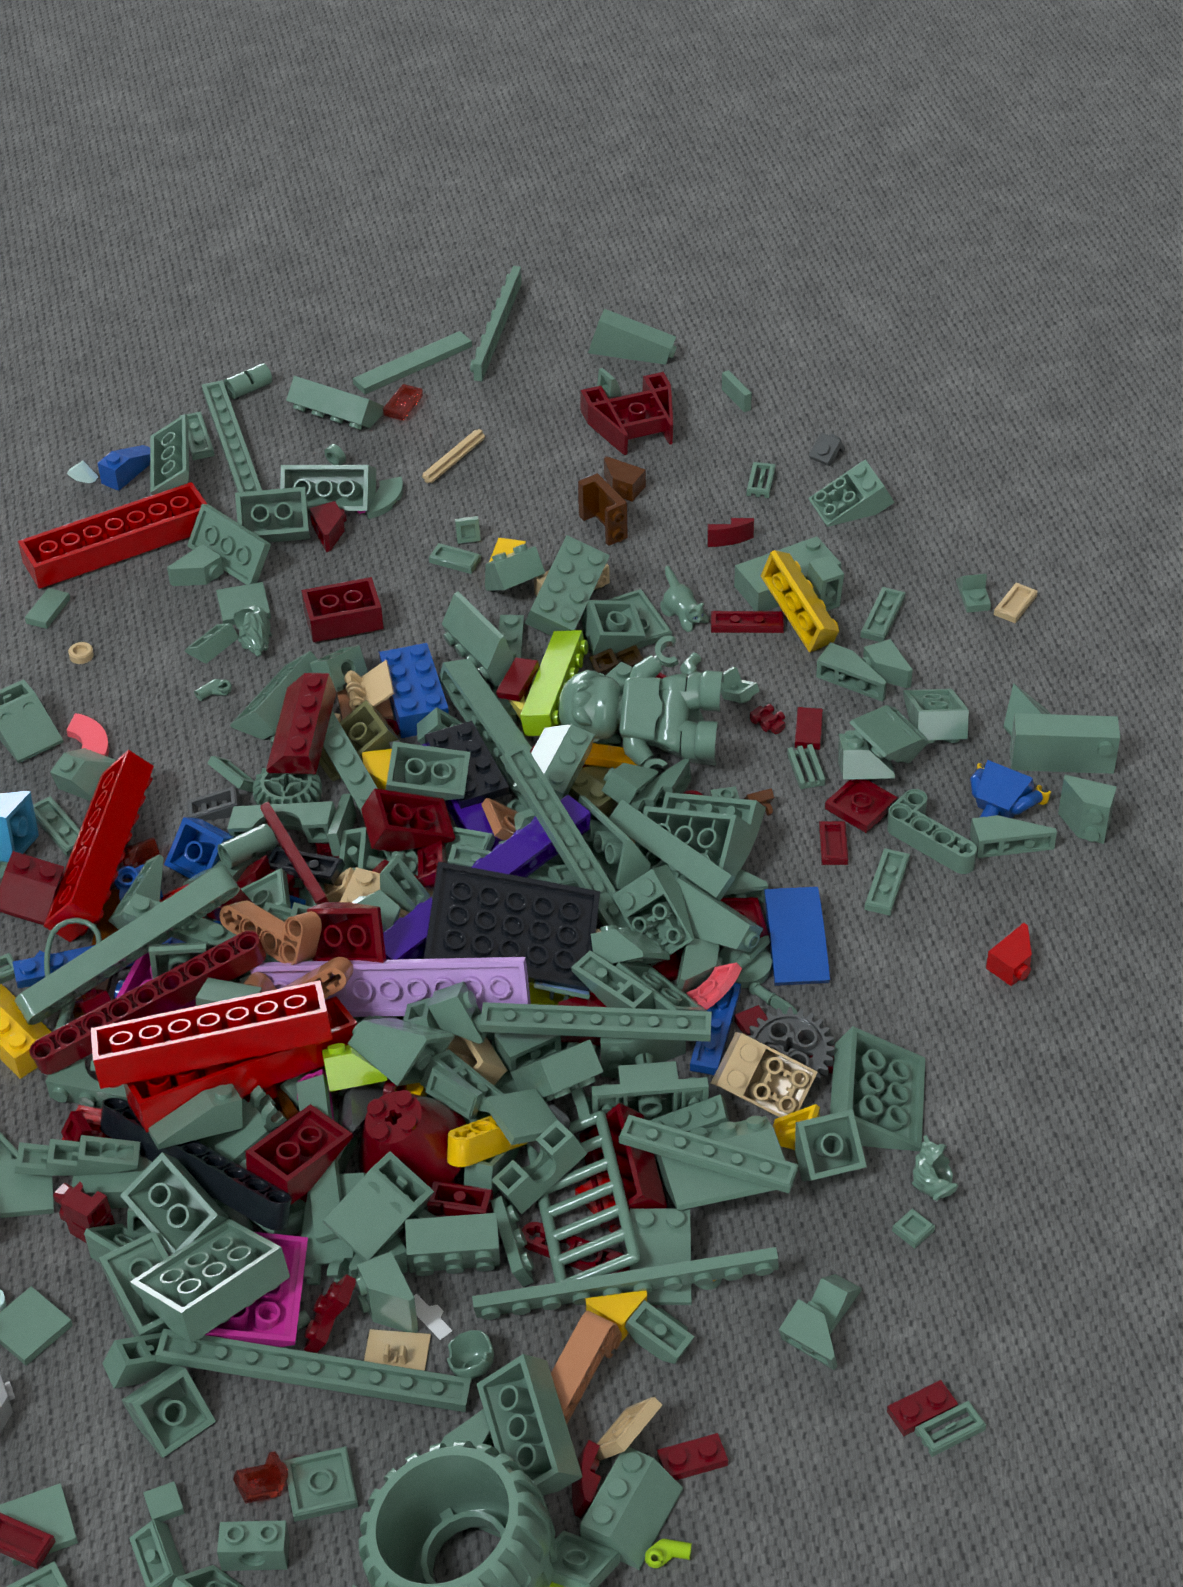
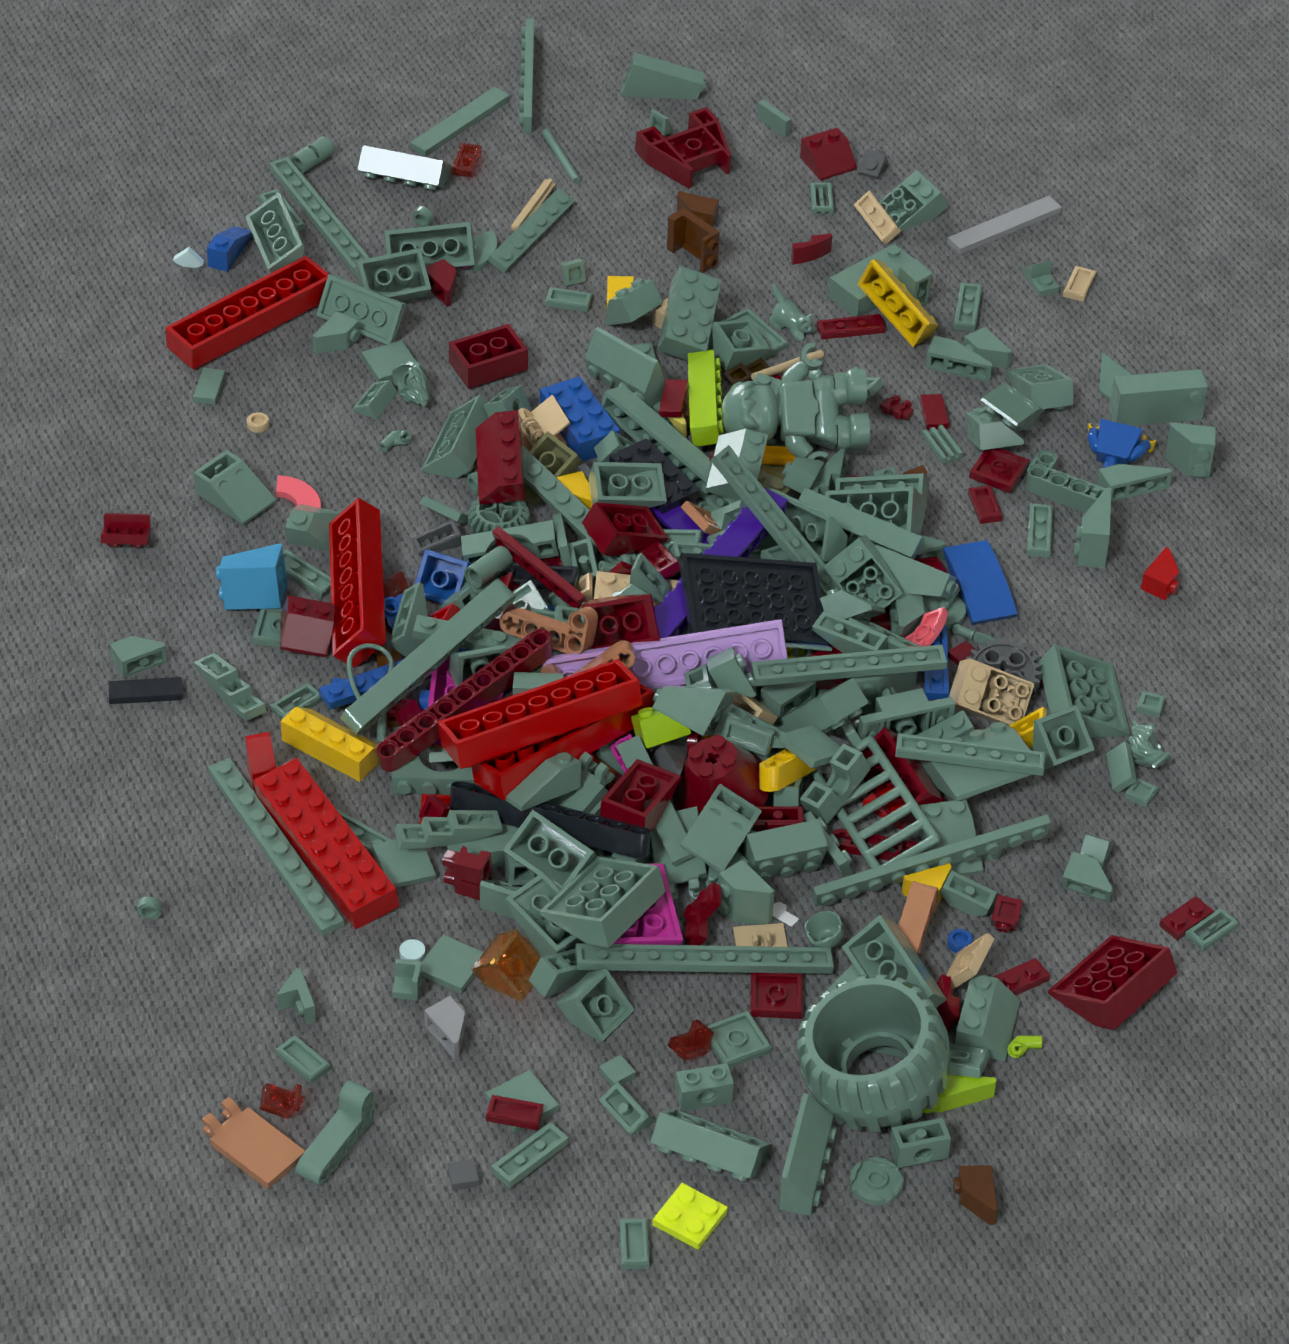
camera: 15 degrees left, 0 degrees up
(85, 1339) = (507, 965): none -> clear orange slope
(388, 1430) = (776, 995): none -> dark red tile
(441, 481) = (531, 230): none -> sand green plate
(506, 422) = (561, 156): none -> sand green bar
(632, 1391) = (959, 939): none -> blue tile
(678, 653) = (786, 365): none -> tan bar
(698, 1367) = (1006, 914): none -> dark red bracket
(780, 433) = (827, 154): none -> dark red slope
(805, 1482) = (1115, 980): none -> dark red slope
(812, 506) = (877, 217): none -> tan tile
(896, 1192) = (1121, 767): none -> sand green tile
(944, 893) = (1094, 533): none -> sand green slope
(950, 529) = (1004, 225): none -> light grey tile
(956, 1115) = (1150, 704): none -> sand green tile

